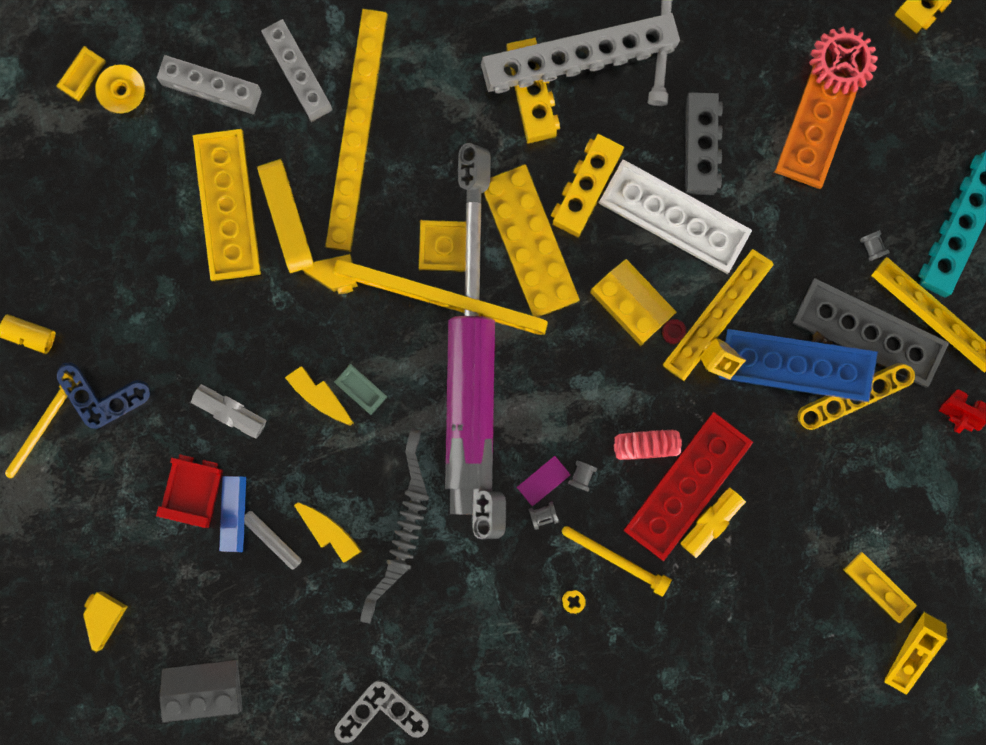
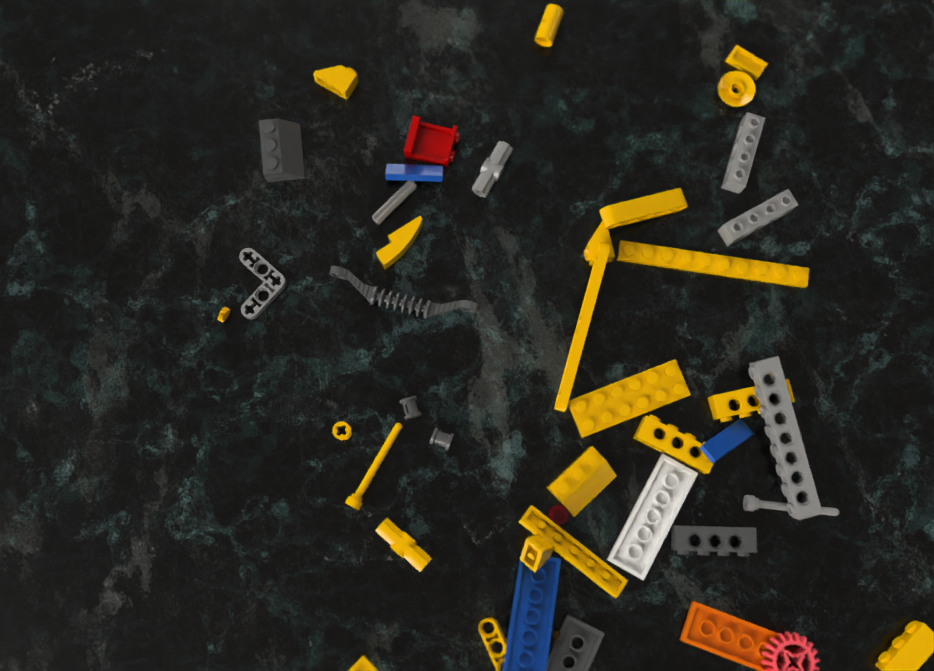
camera: 85 degrees right, 5 degrees down
(39, 429) = (511, 55): yellow piece -> none
(101, 406) = (496, 76): dark blue beam -> none
(226, 205) = (650, 167): yellow plate -> none
(318, 396) = (504, 235): yellow slope -> none
(360, 389) = (509, 267): sand green tile -> none
(442, 245) = (623, 331): yellow tile -> none
(472, 376) = (522, 351): piece -> none
(543, 481) = (438, 408): magenta tile -> none
(583, 123) = (726, 441): none -> blue tile
(647, 444) = (466, 490): coral gear -> none
(688, 486) = (433, 525): red plate -> none

